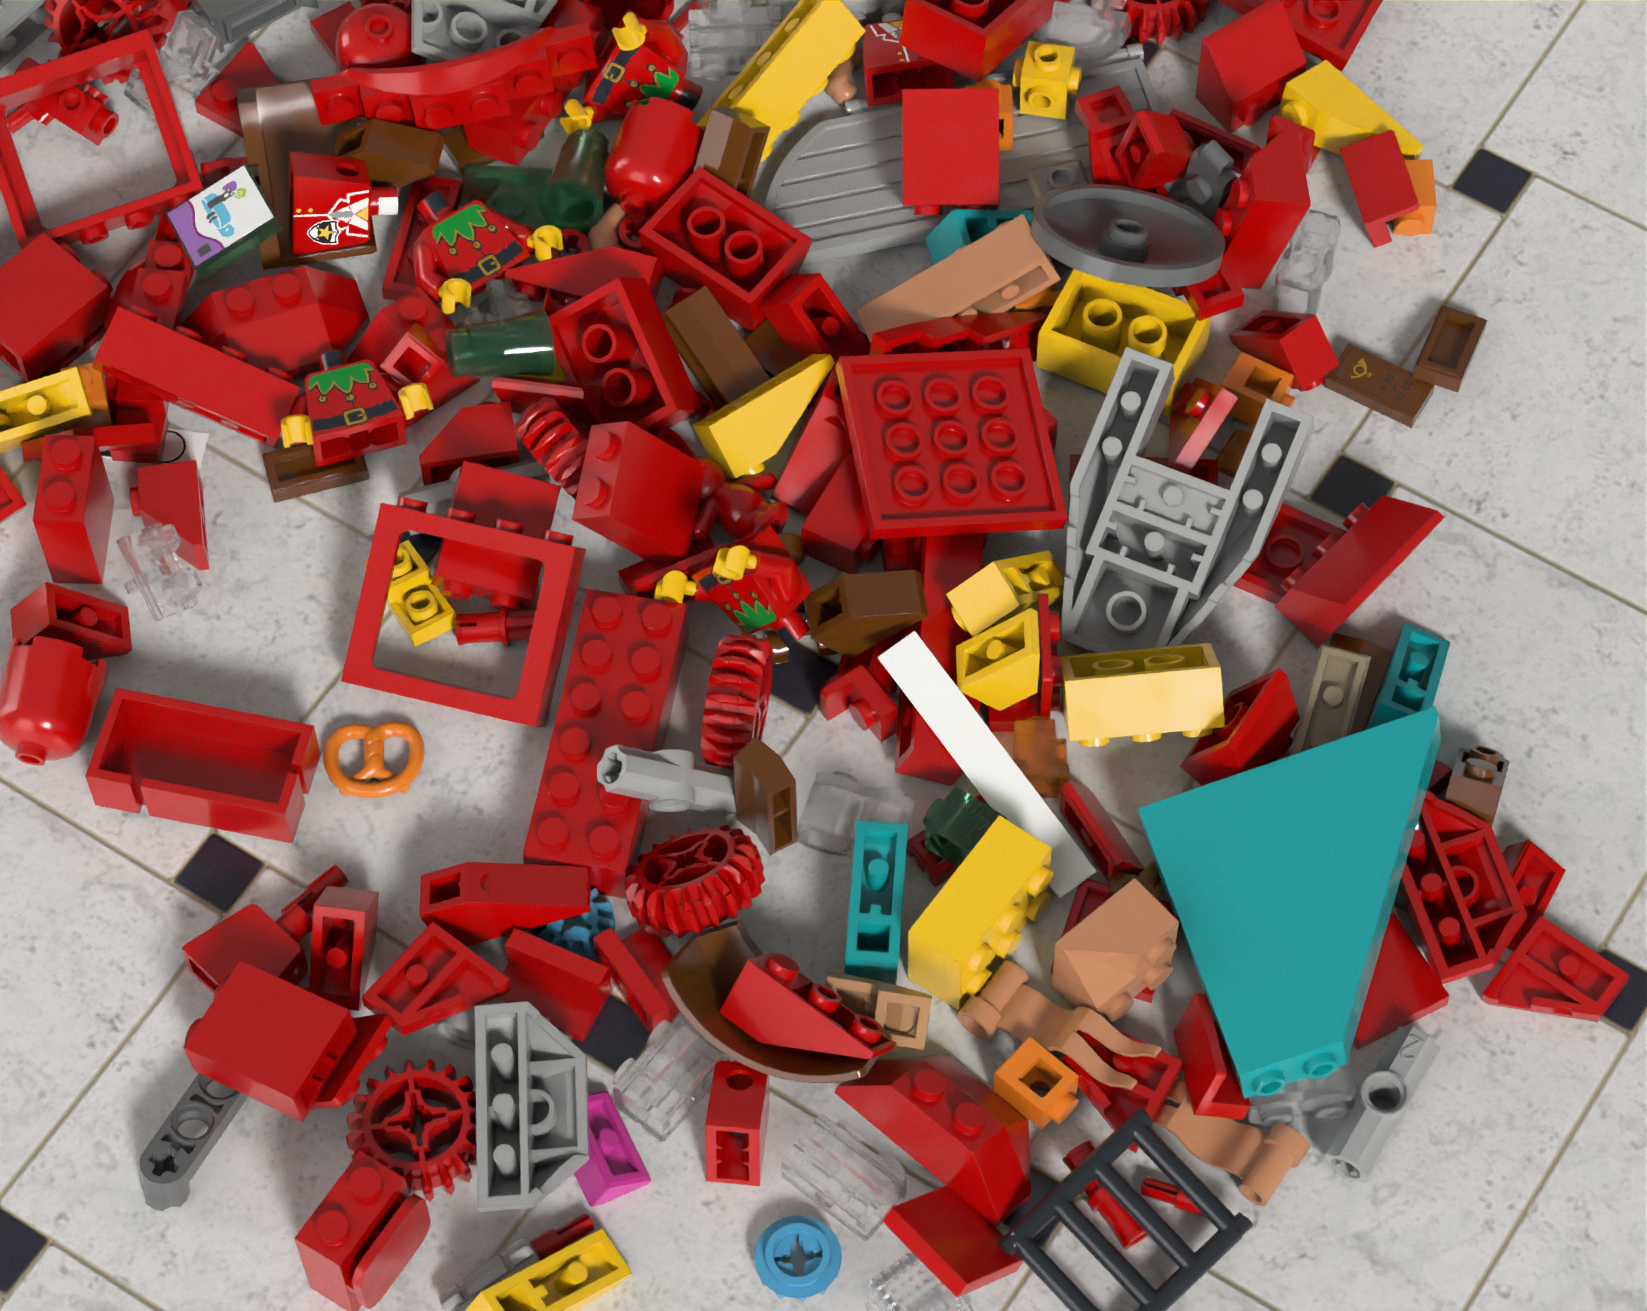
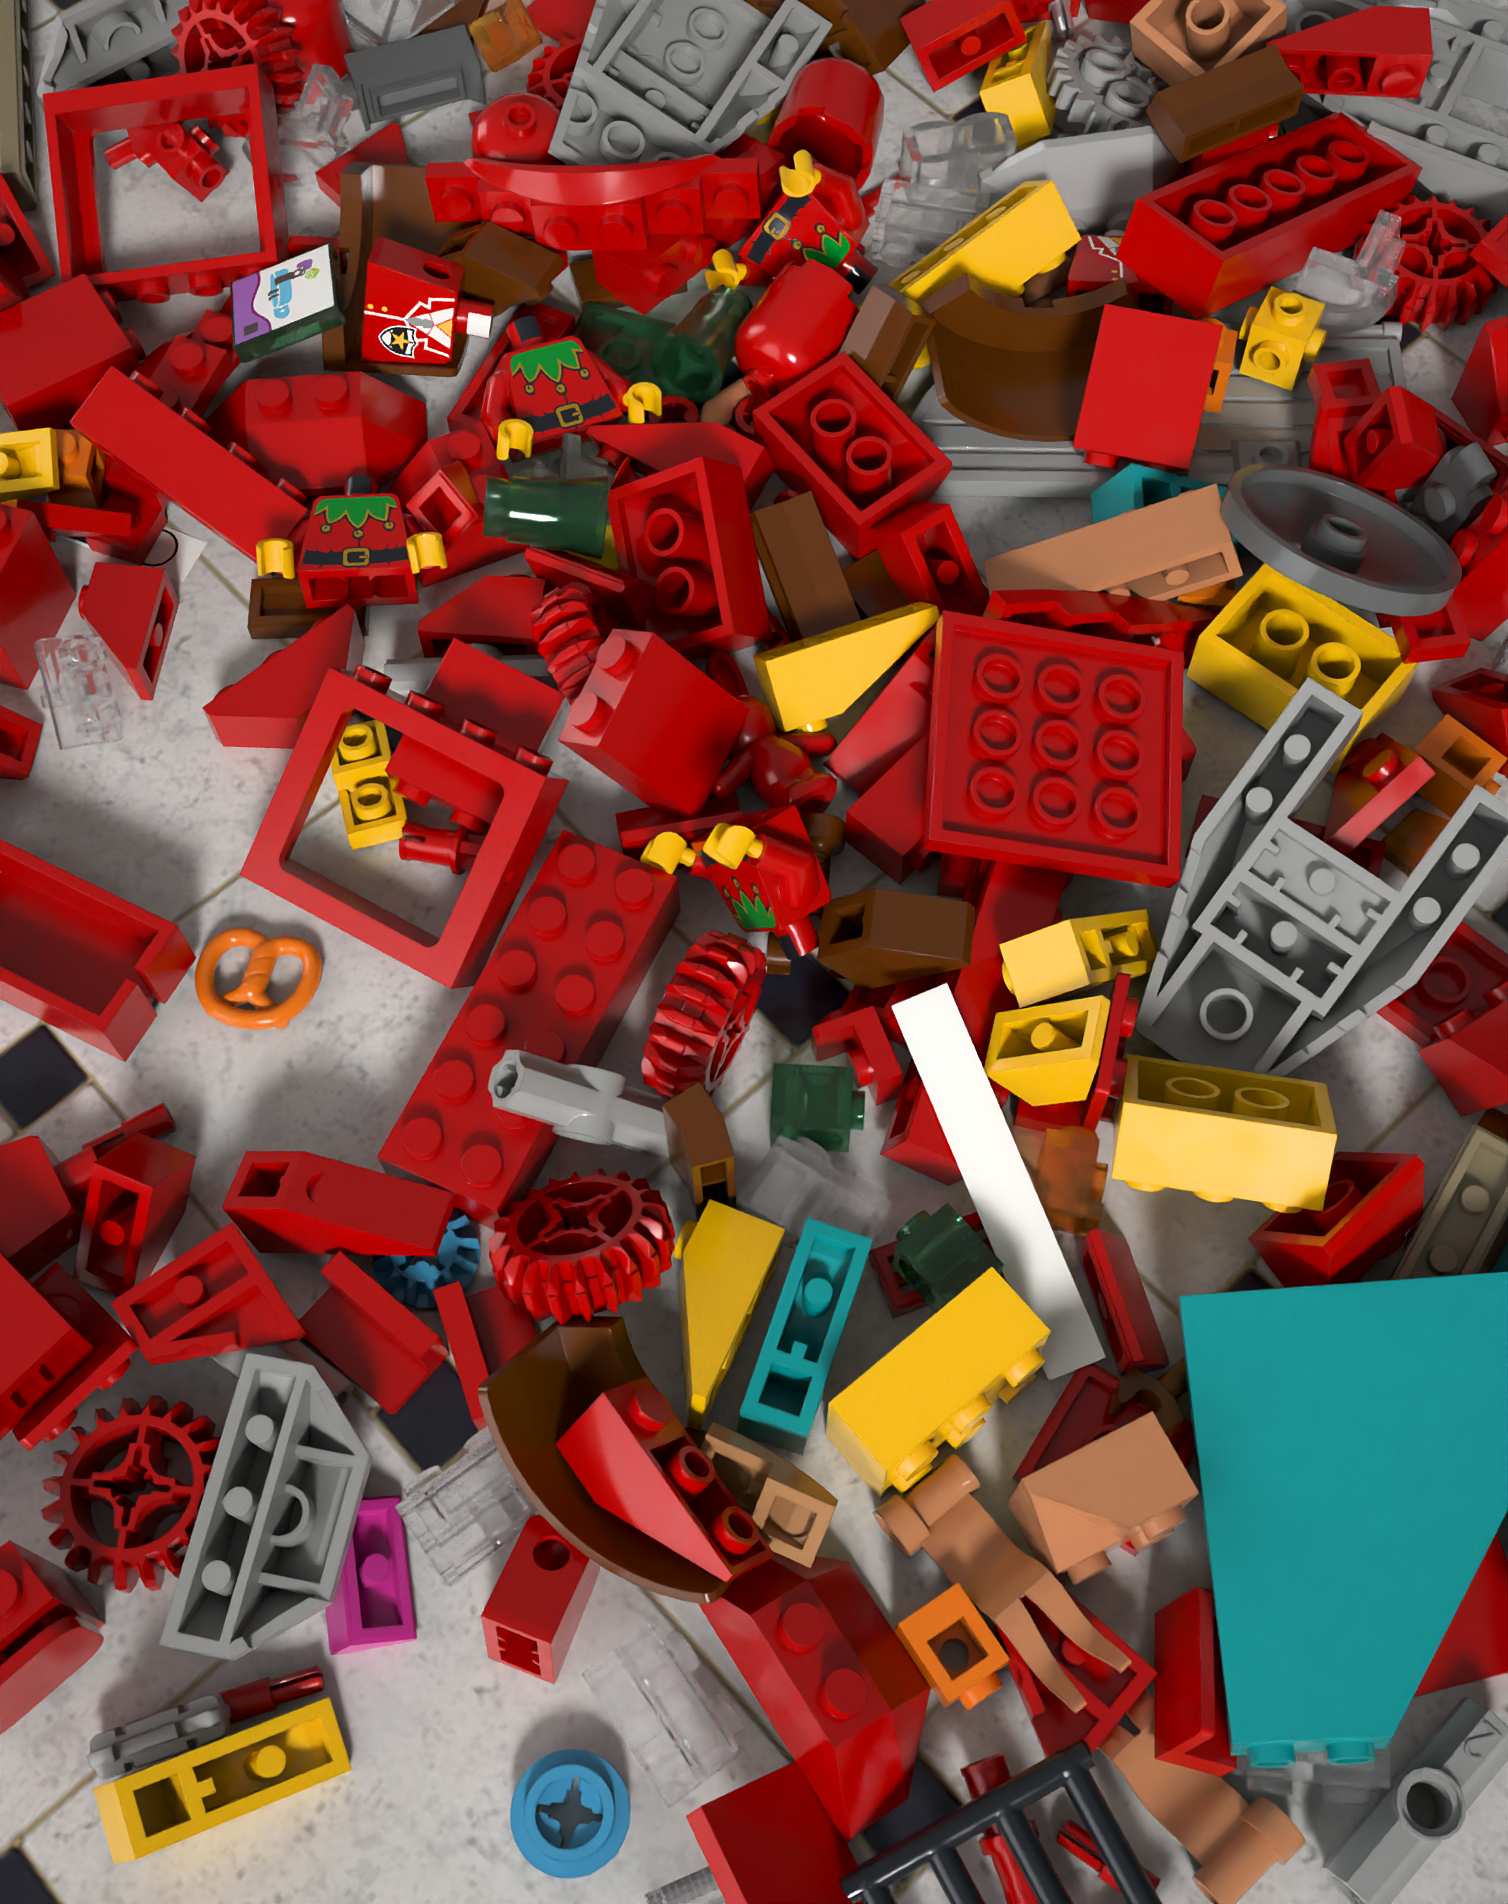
camera: 15 degrees right, 5 degrees up
(330, 535) = (276, 697): none -> red slope
(803, 891) = (721, 1284): none -> yellow slope
(837, 745) = (815, 1105): none -> clear green brick
(842, 147) = (1014, 364): none -> reddish brown panel

